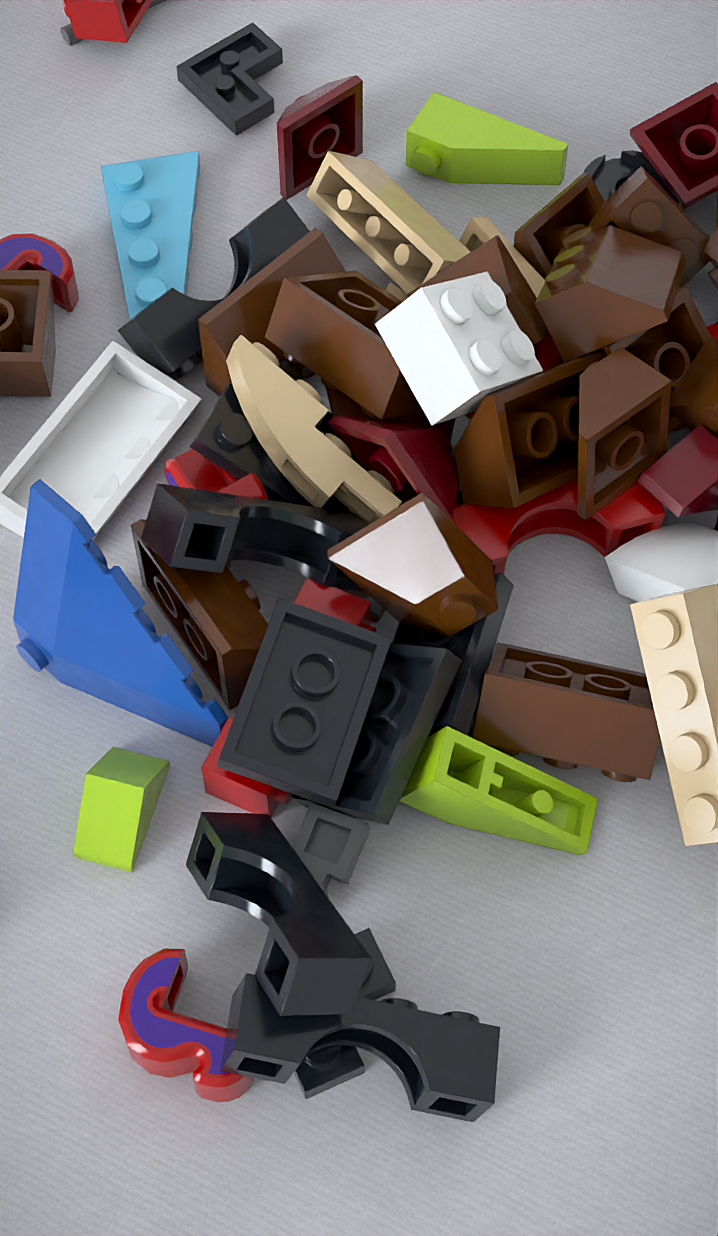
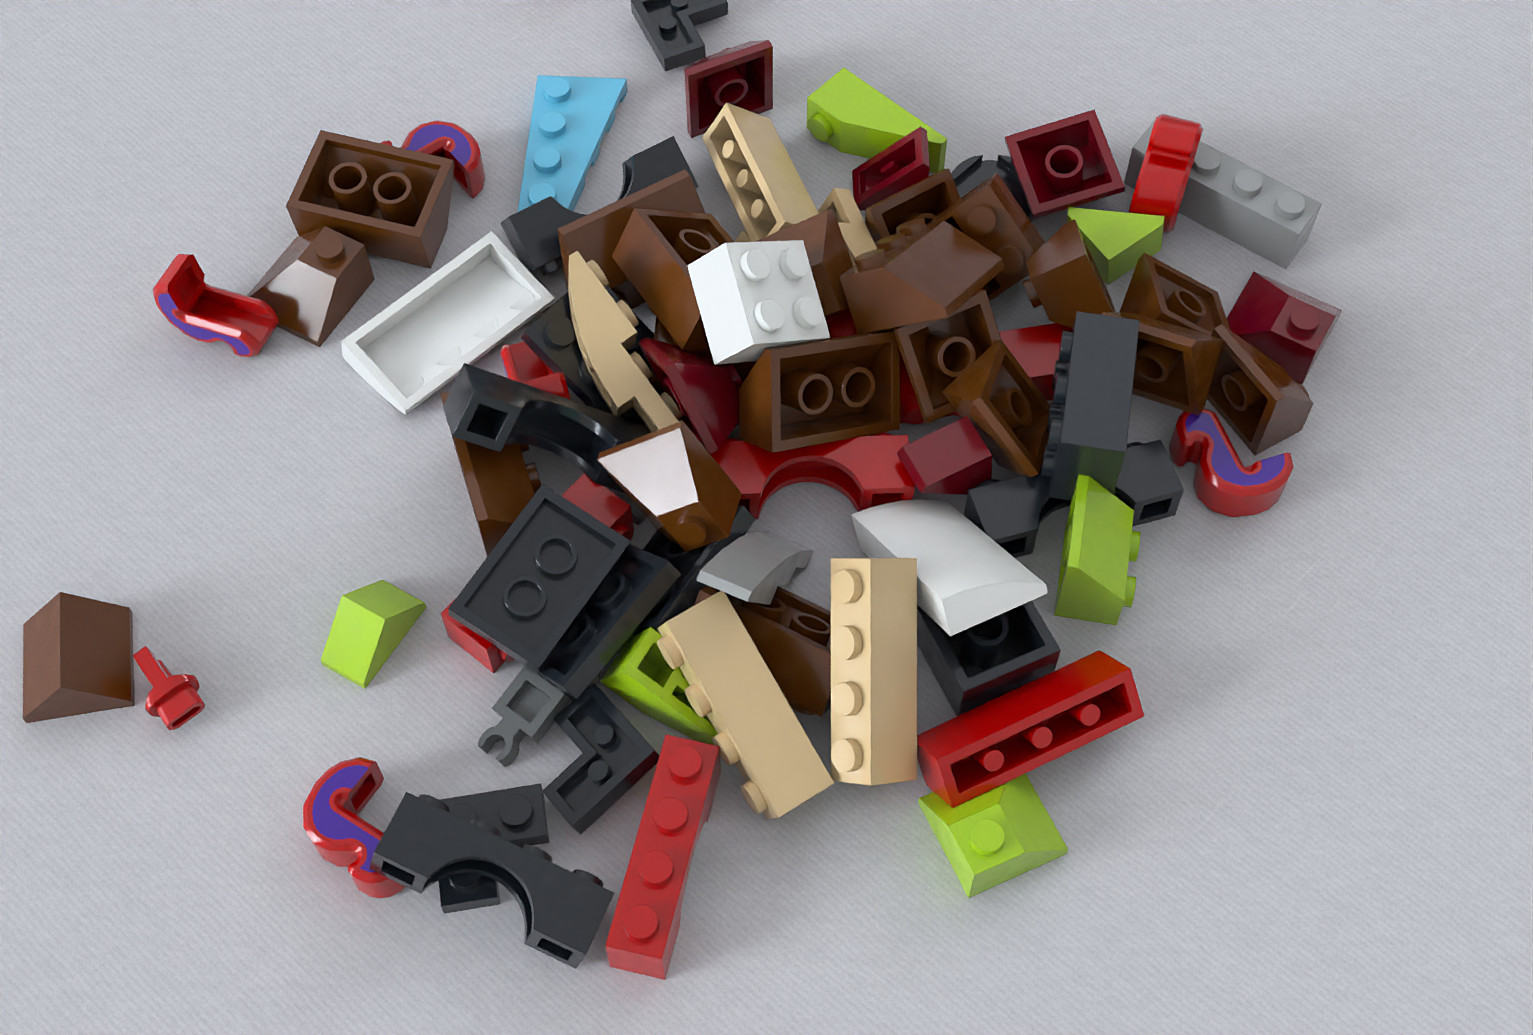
camera: 15 degrees right, 0 degrees up
(92, 628) = (383, 474): slope -> none
(310, 952) = (462, 784): black arch -> none
(439, 881) = (610, 760): none -> black plate
(522, 188) = (892, 170): none -> dark red slope
(538, 975) = (659, 865): none -> red arch
(539, 634) = (755, 566): none -> light grey slope
(572, 788) = (744, 706): none -> tan brick
(620, 427) = (882, 403): reddish brown slope -> none

